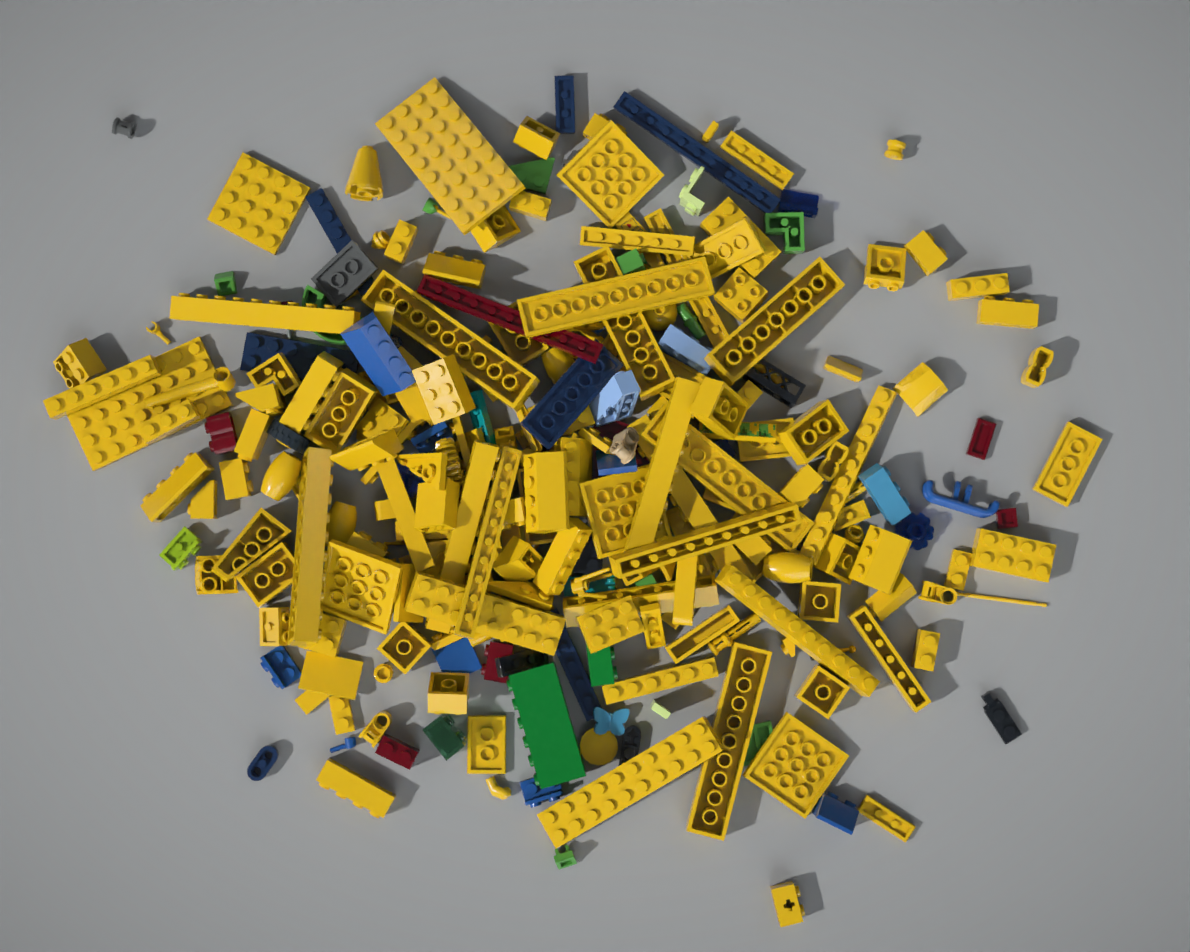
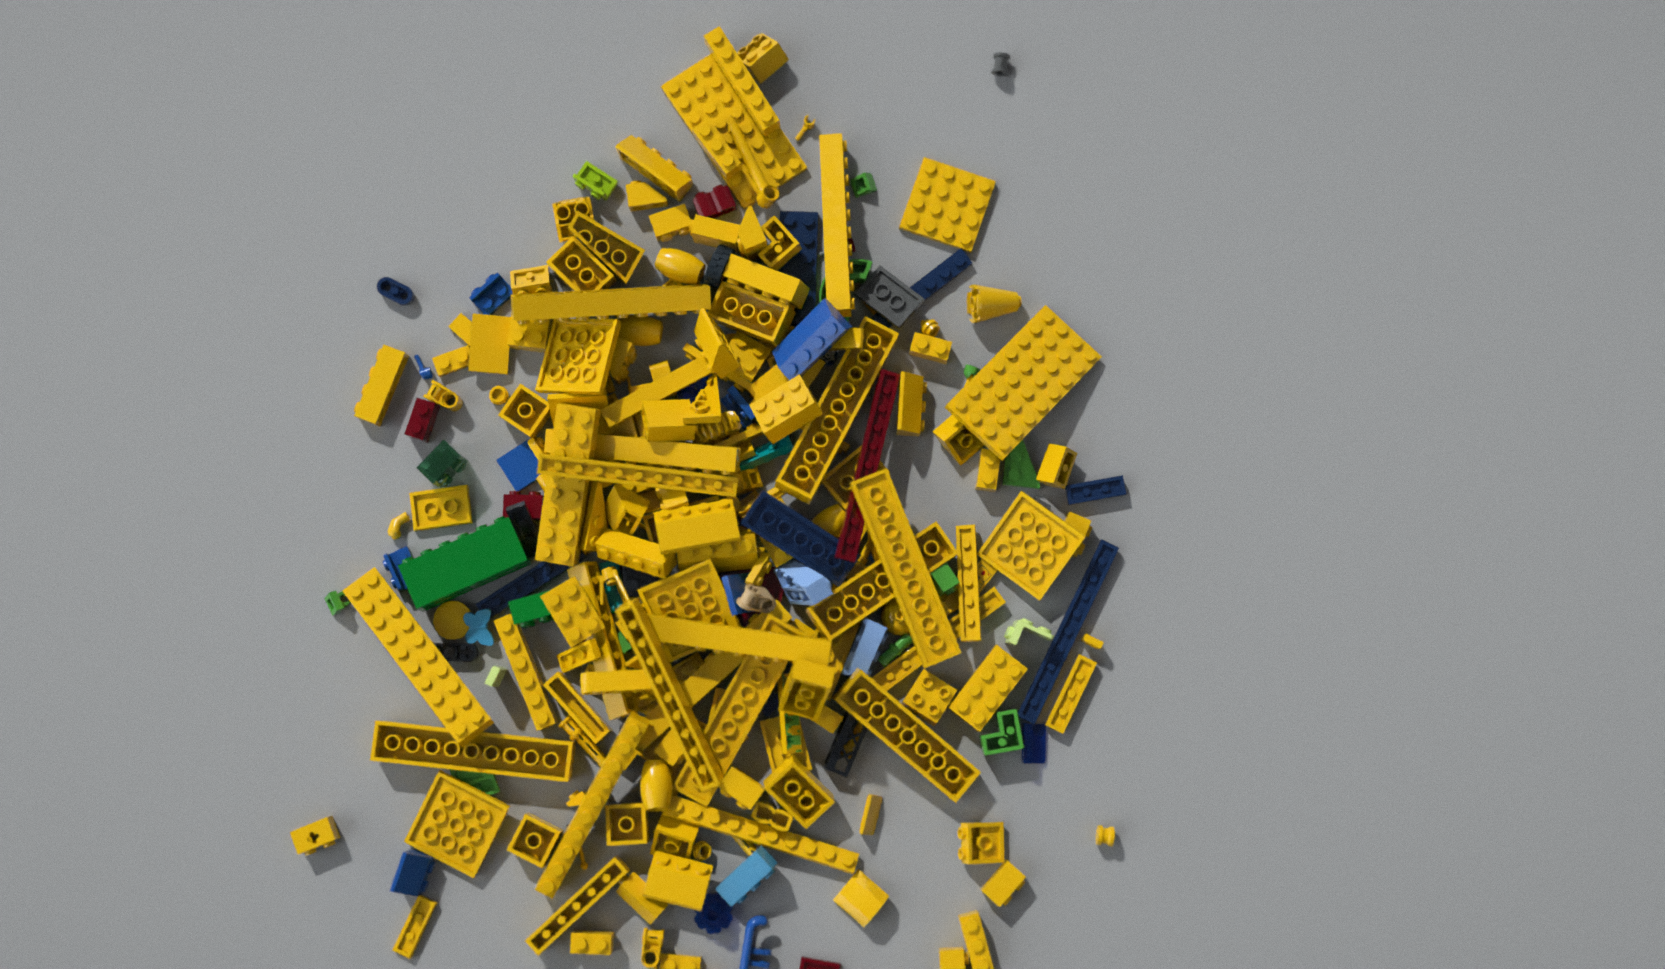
camera: 85 degrees right, 5 degrees down
(448, 693) = (485, 461): yellow brick -> none
(729, 247) = (974, 676): yellow tile -> none
(852, 514) = (721, 845): yellow plate -> none

